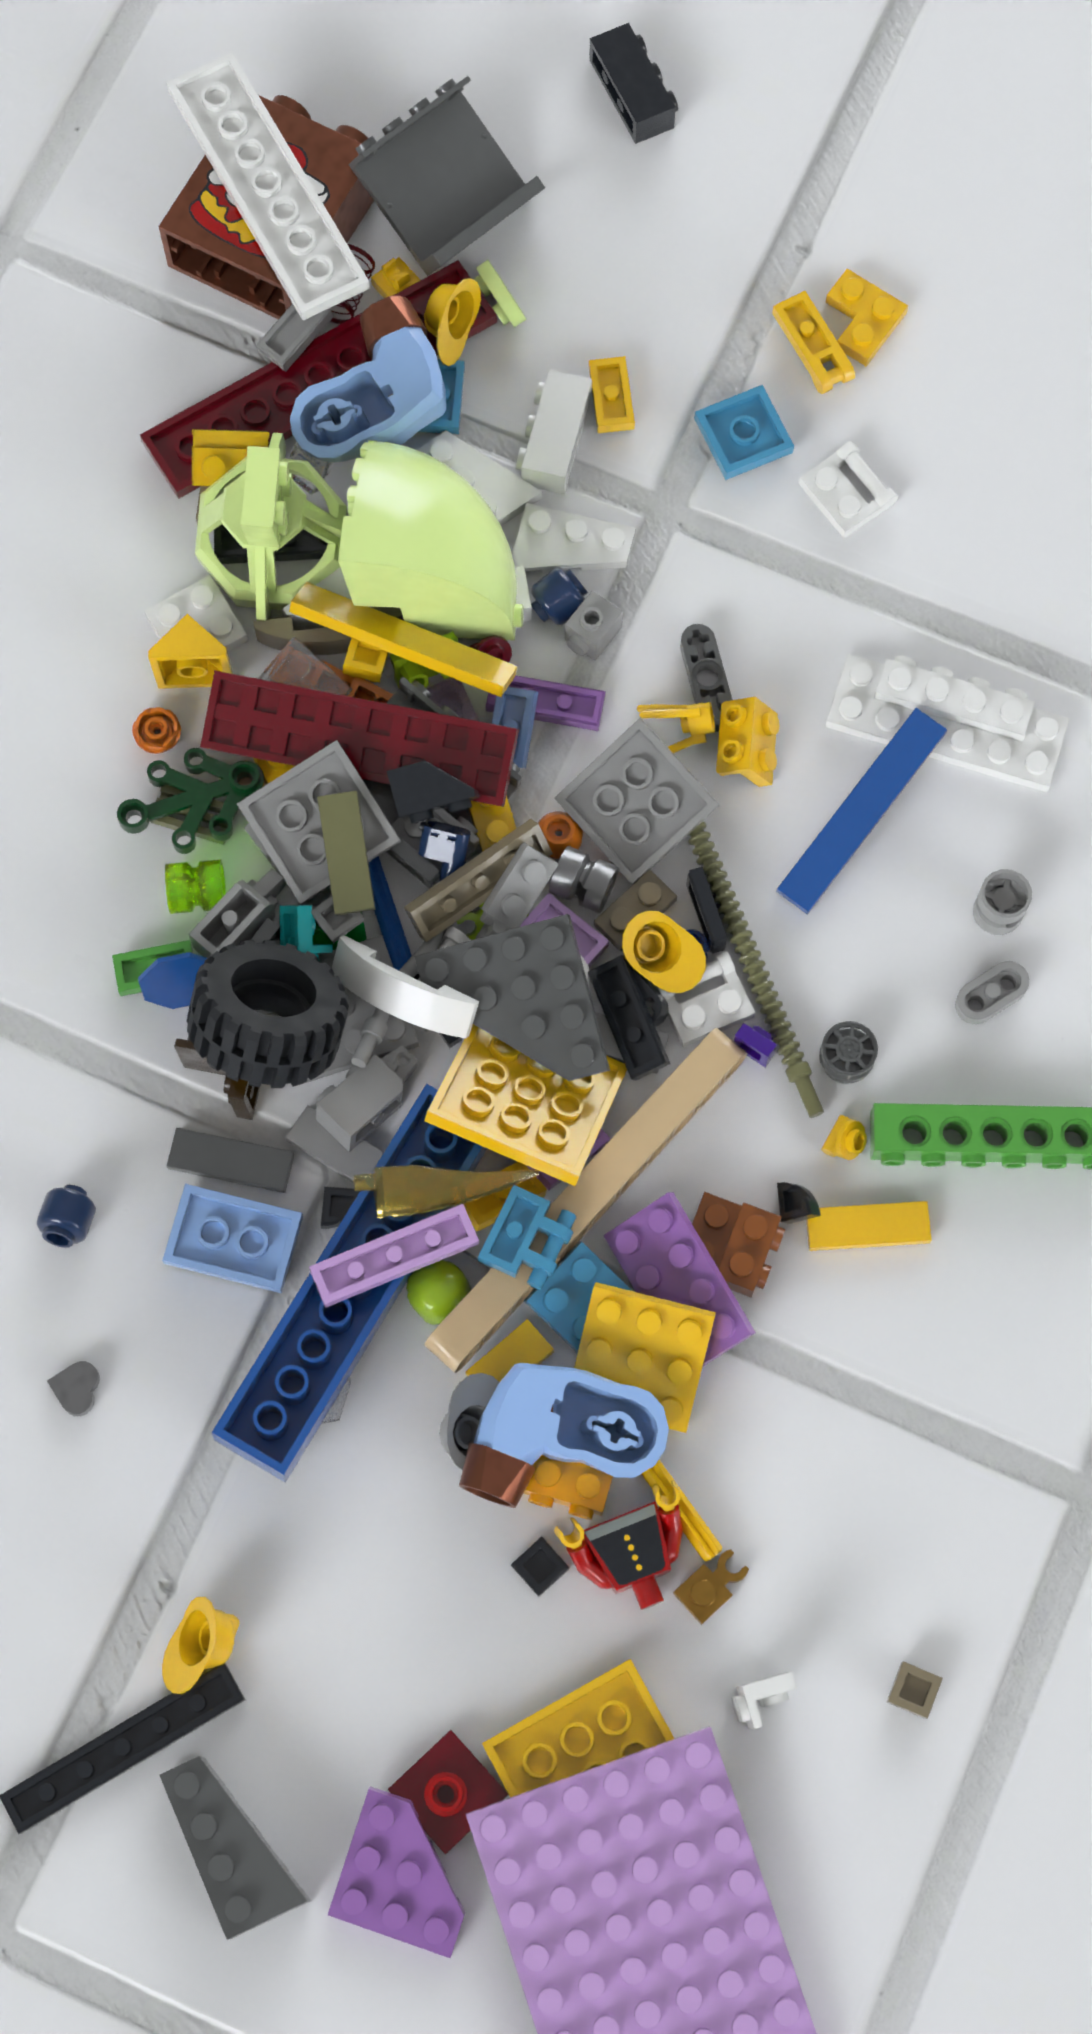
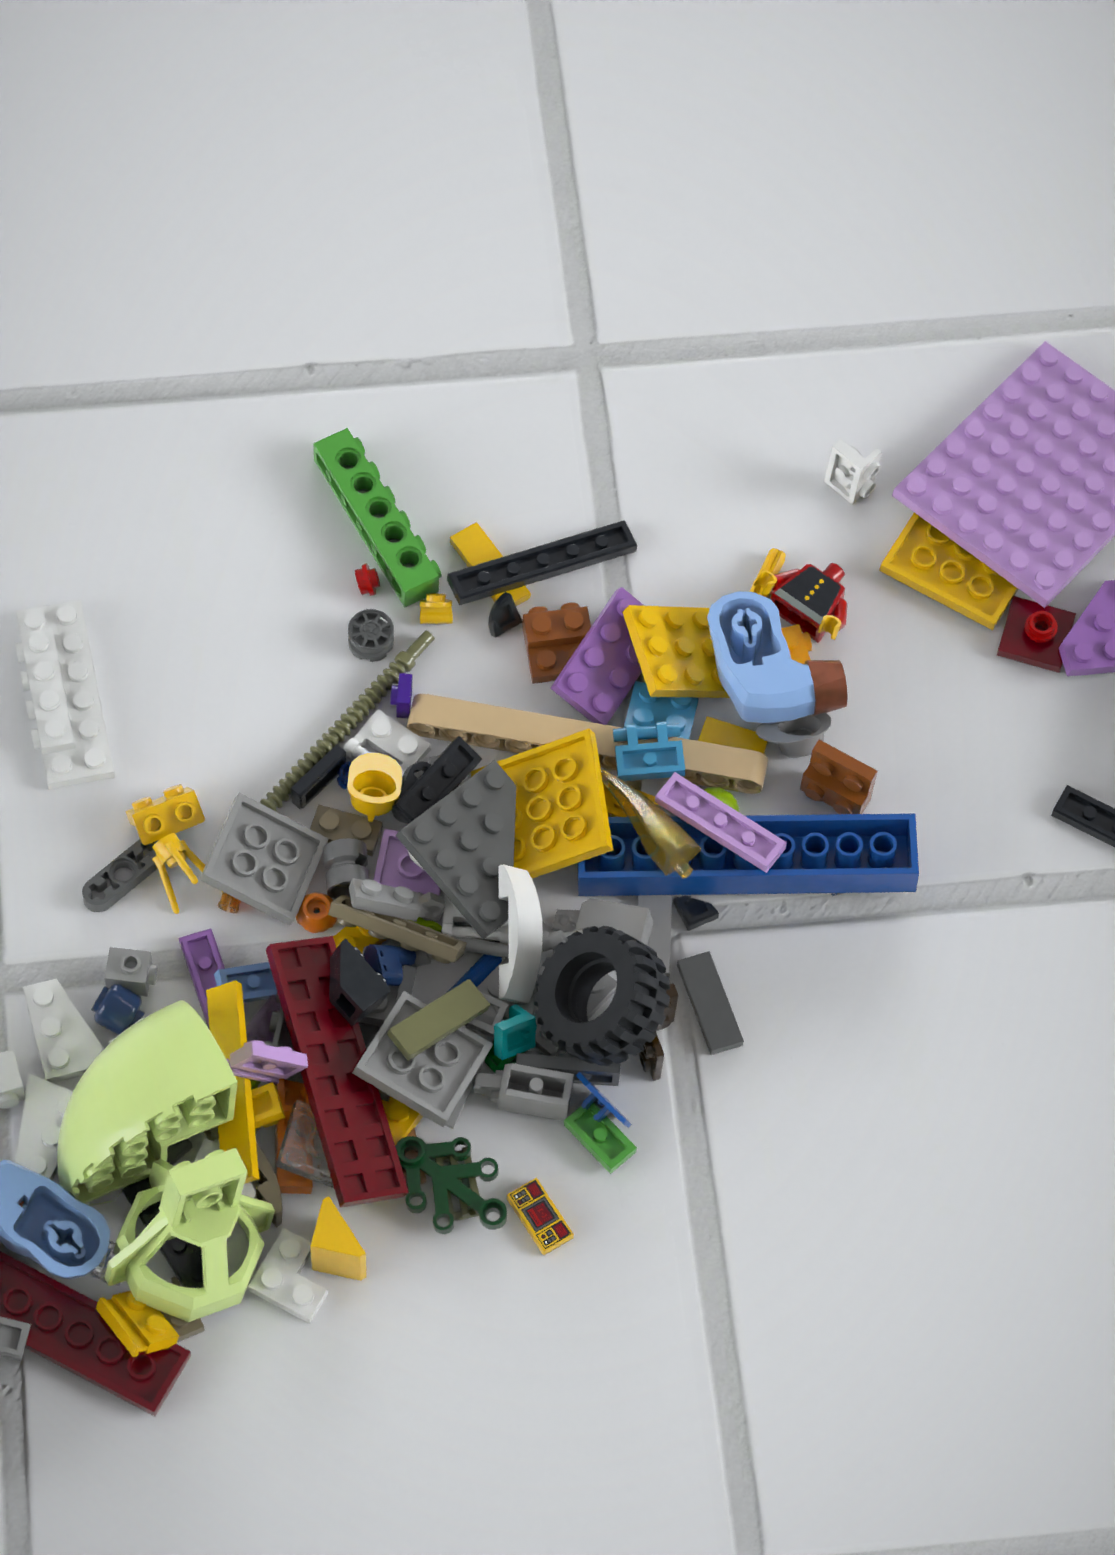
camera: 125 degrees left, 10 degrees down
(66, 1216) = (826, 1085): dark blue head -> none
(75, 1387) = (938, 1013): flat silver tile -> none
(113, 870) = (540, 1216): none -> tile
(154, 719) = (411, 1238): orange plate -> none
(194, 885) = (517, 1135): clear neon green wheel -> none
(199, 1643) = (1057, 828): yellow piece -> none
(233, 1238) = (766, 965): light blue plate -> none
(380, 1433) = (838, 780): none -> dark orange plate
(392, 659) = (266, 1062): none -> lavender plate
(540, 1566) = (857, 653): black tile -> none
(706, 1590) = (802, 548): pearl gold plate -> none
(839, 1281) = (541, 562): none -> black tile
(861, 811) = (175, 710): blue tile -> none
(914, 1690) = (785, 397): dark tan plate -> none
(918, 1083) = (367, 580): none -> red plate
(990, 993) = (269, 567): light grey plate -> none
(1002, 902) = (196, 584): light grey wheel -> none

